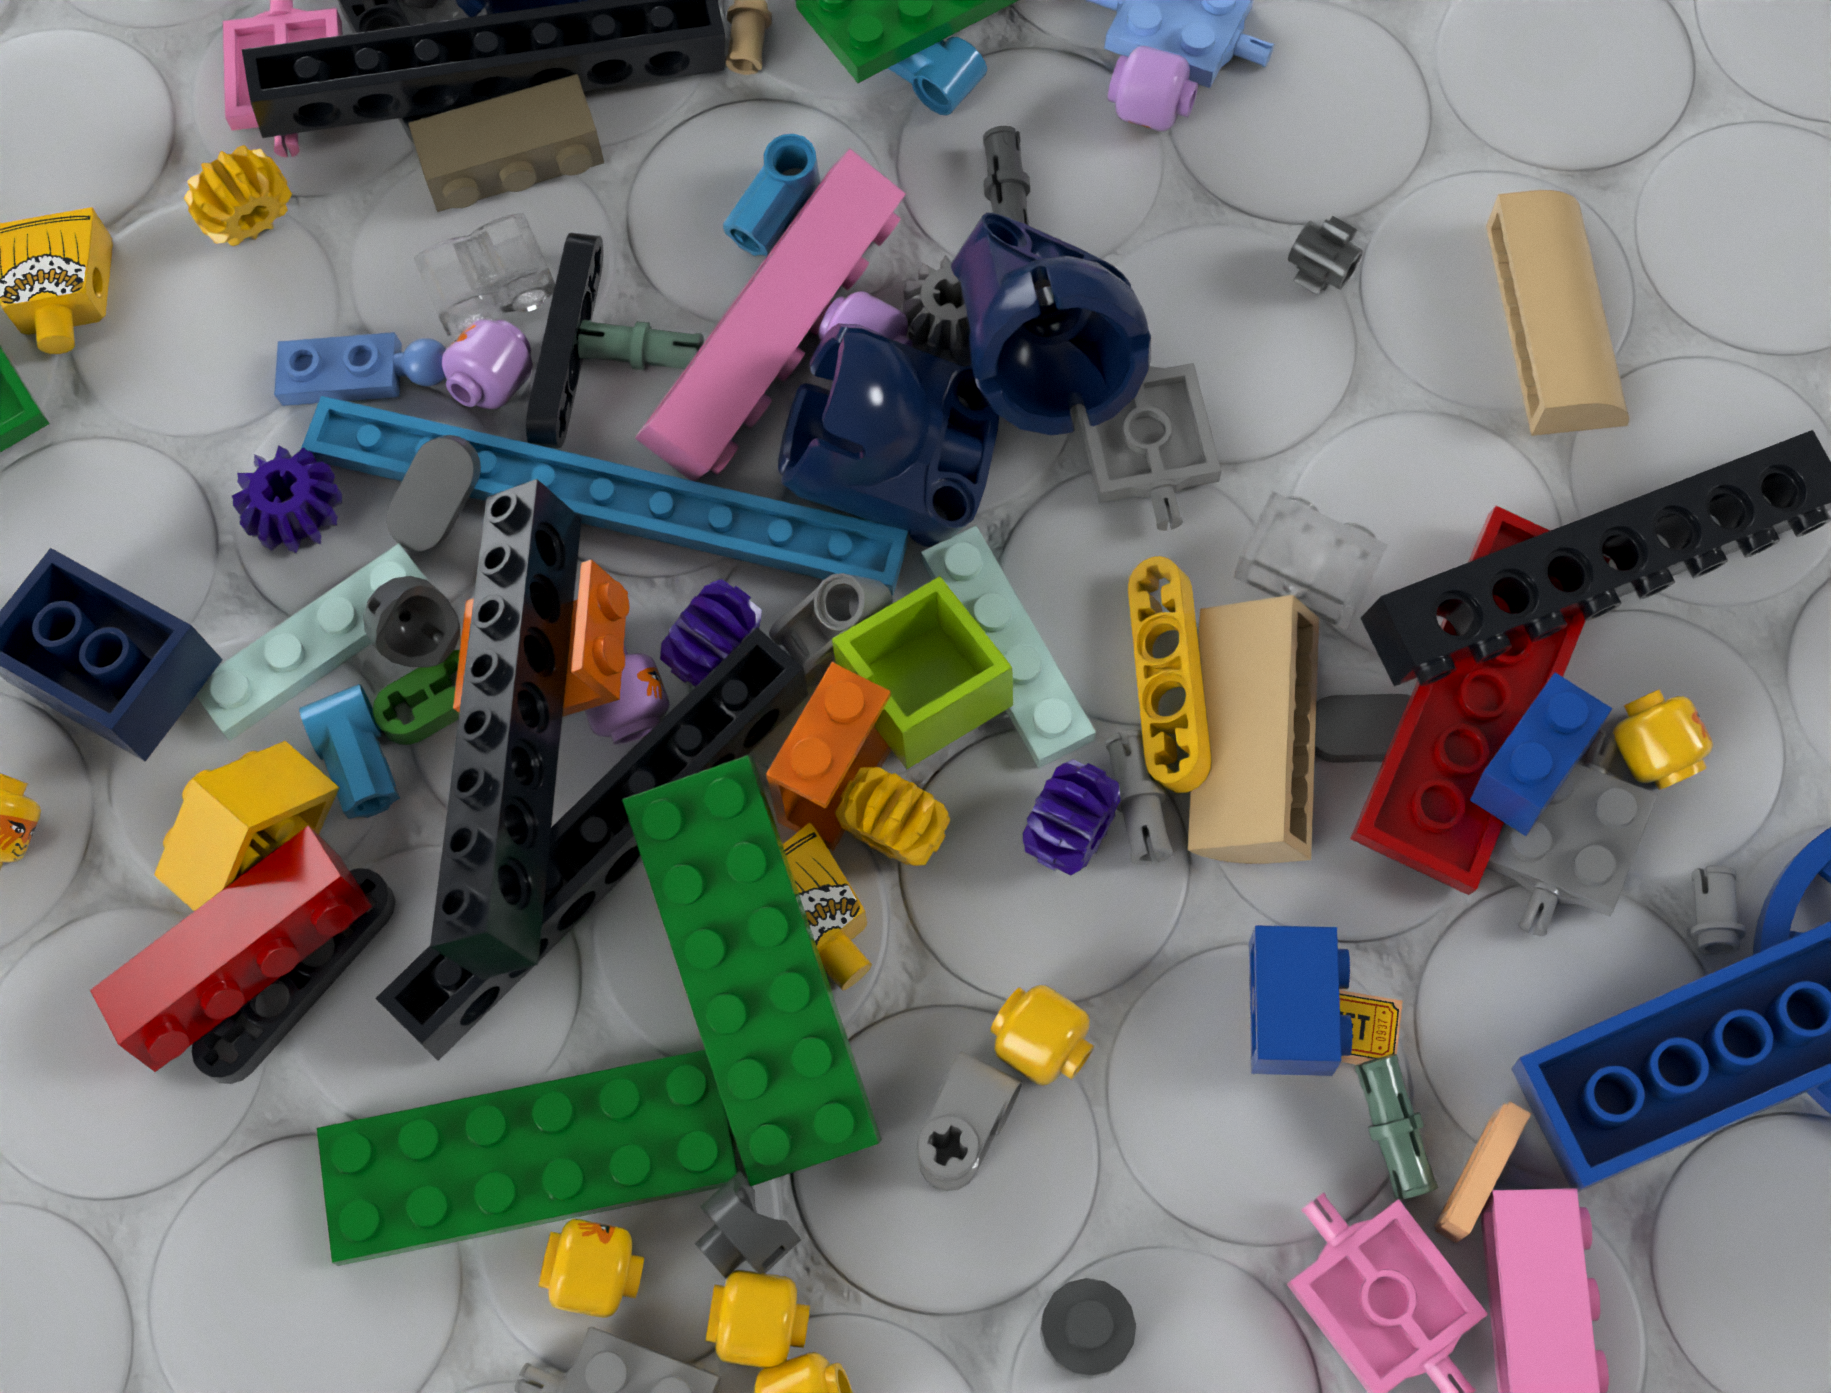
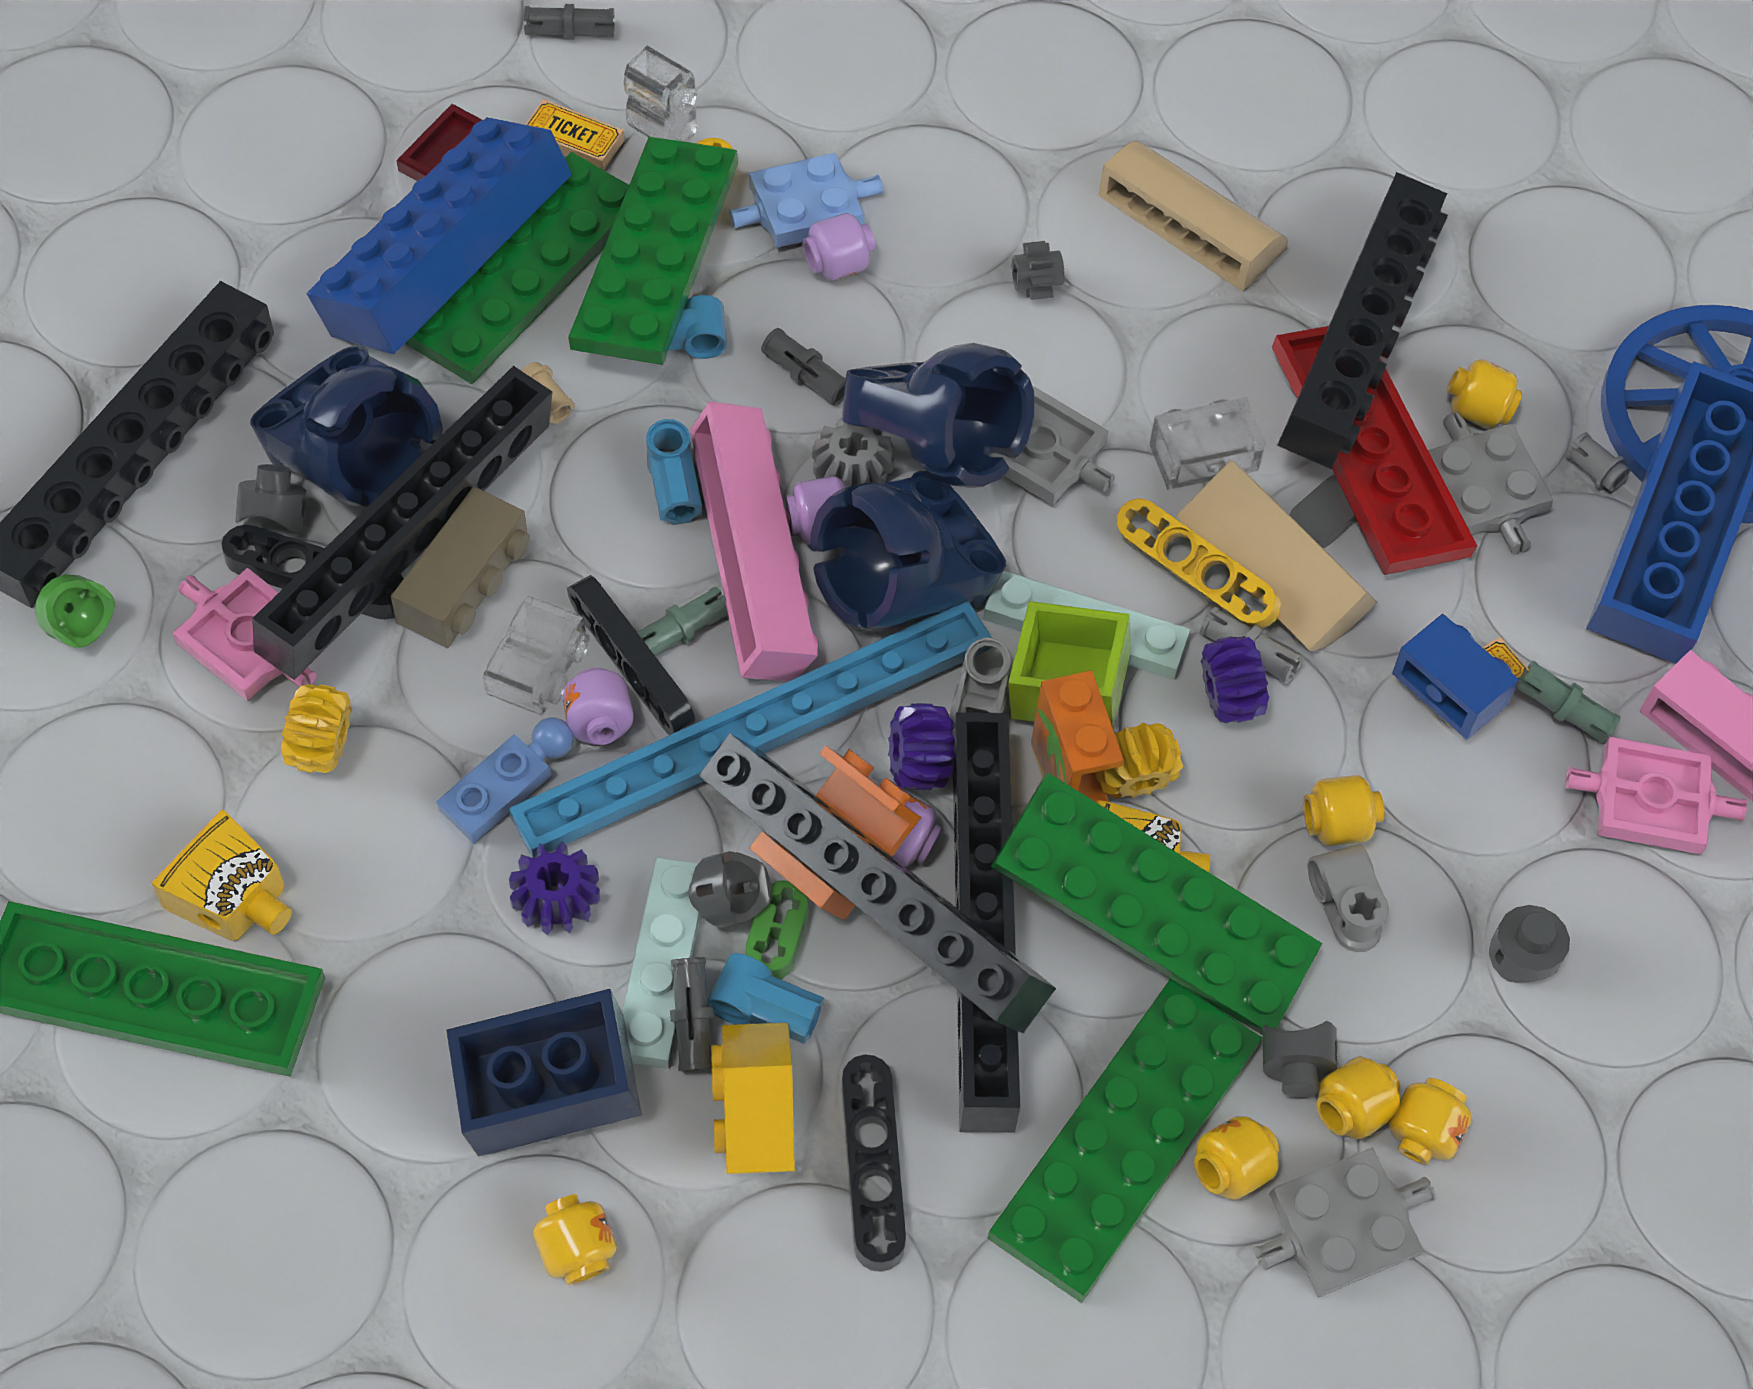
camera: 50 degrees left, 10 degrees down
(230, 949) = (832, 1168): red brick -> none
(276, 704) = (687, 976): none -> dark grey pin
(433, 492) = (652, 805): dark grey tile -> none
(1481, 1172) = (1632, 688): light nougat tile -> none
(1540, 754) = (1444, 442): blue brick -> none

